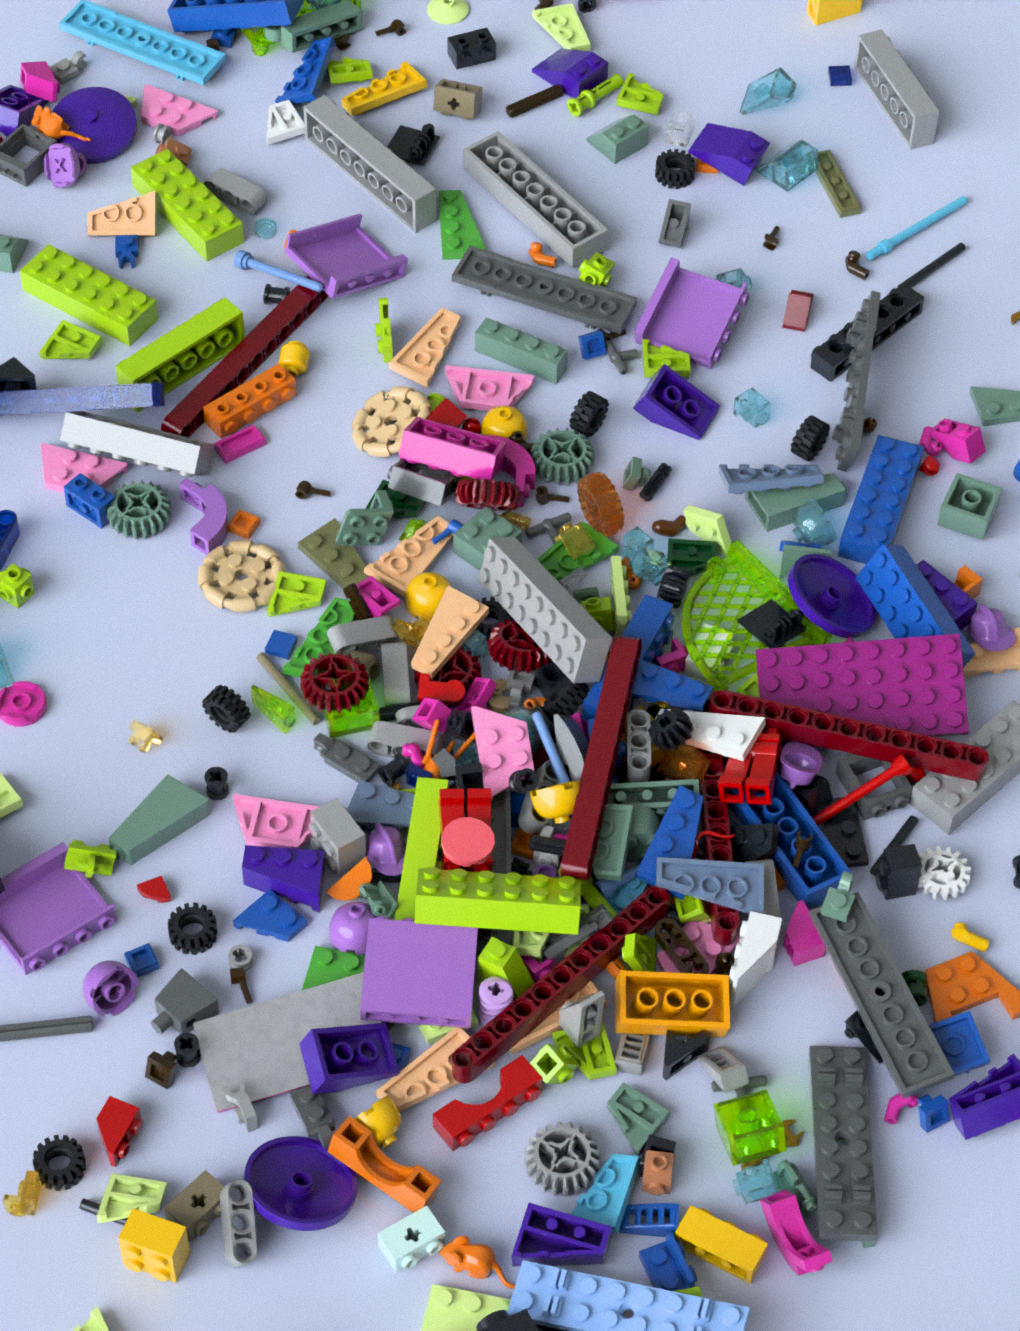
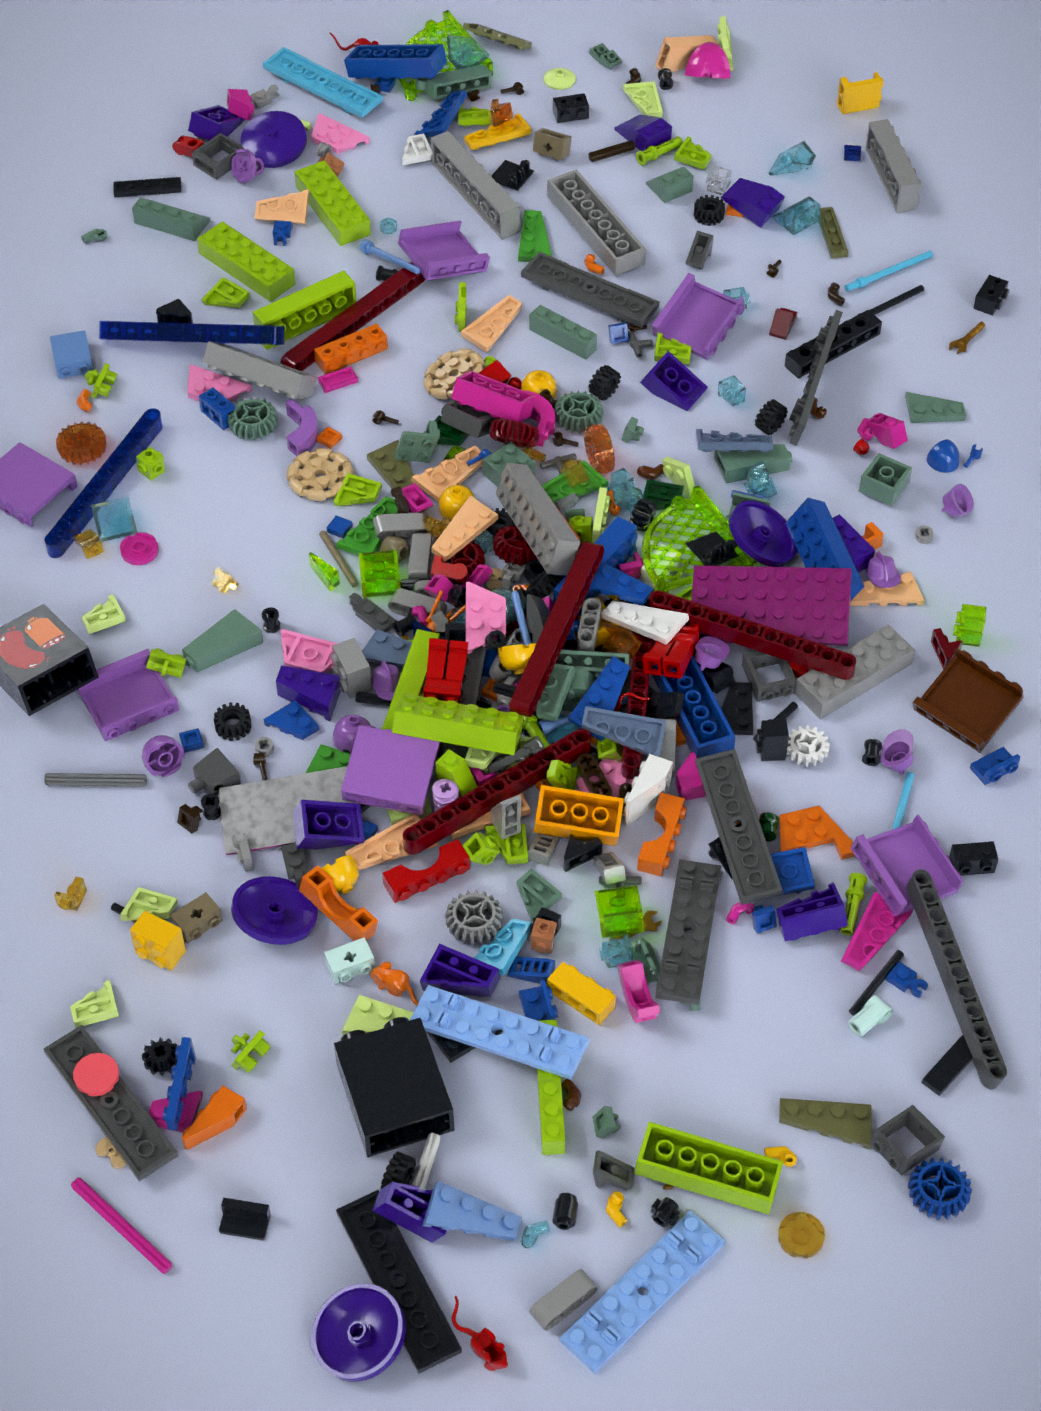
camera: 10 degrees right, 0 degrees up
(52, 124) = (242, 135): orange animal -> none
(56, 1148) = (98, 865): black tyre -> none
(117, 1126) = (149, 854): red slope -> none
(155, 890) = (210, 691): red tile -> none
(226, 708) = (287, 567): black tyre -> none
(236, 191) = (371, 196): light grey beam -> none
(245, 1210) = (217, 941): light grey beam -> none
(294, 357) = (390, 321): yellow head -> none
(320, 688) = (381, 555): dark red gear -> none
(348, 886) = (357, 702): orange tile -> none
(379, 899) = (373, 715): sand green hinge -> none
(384, 62) = (500, 112): none -> clear orange slope
(467, 841) = (443, 678): coral tile -> none
(486, 388) = (529, 357): bright pink wing -> none
(596, 270) = (632, 278): lime brick -> none
(655, 482) = (646, 438): black axle -> none
(671, 729) = (614, 614): black gear -> none
(777, 1042) = (655, 853): none -> orange arch
(802, 845) = (700, 711): dark brown hand -> none
(839, 901) = (718, 755): sand green plate -> none
(880, 498) = (817, 466): blue brick -> none
(898, 768) = (785, 663): red piece -> none
(961, 934) = (814, 792): yellow arm -> none

